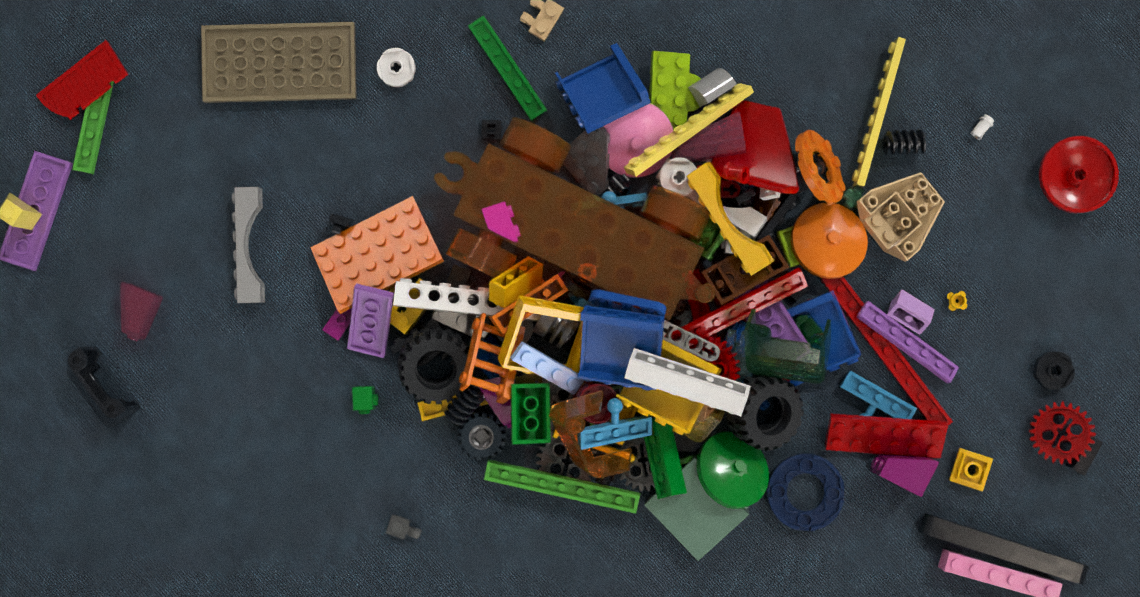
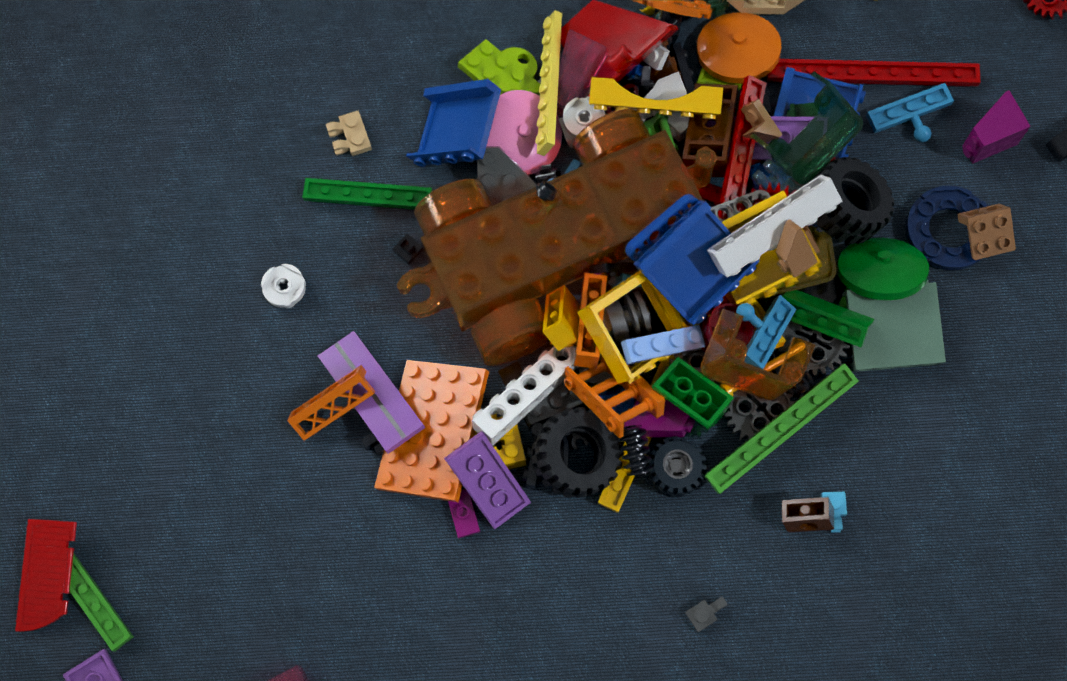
camera: 50 degrees left, 15 degrees down
(247, 206) = (289, 513): light grey arch -> none
(278, 62) = (187, 383): dark tan plate -> none
(338, 167) = (326, 396): none -> orange fence
(364, 399) = (554, 549): green brick -> none
(369, 192) = (386, 410): none -> medium lavender tile
(499, 221) = (498, 272): dark pink slope -> none
(517, 547) = (808, 514): none -> reddish brown brick
(539, 558) = (839, 503): none -> medium azure plate
(587, 204) = (546, 191): none -> black plate
(677, 410) = (794, 250): none -> medium nougat slope
(712, 86) = (528, 42): light grey brick -> none
(769, 309) = (761, 122): none -> medium nougat slope
(821, 520) = (989, 230): none -> medium nougat bracket
(886, 435) = (948, 125): red plate -> none
(907, 342) = (879, 49): medium lavender tile -> none
(910, 312) = (854, 27): lavender brick -> none
(960, 469) = (1027, 88): yellow piece -> none

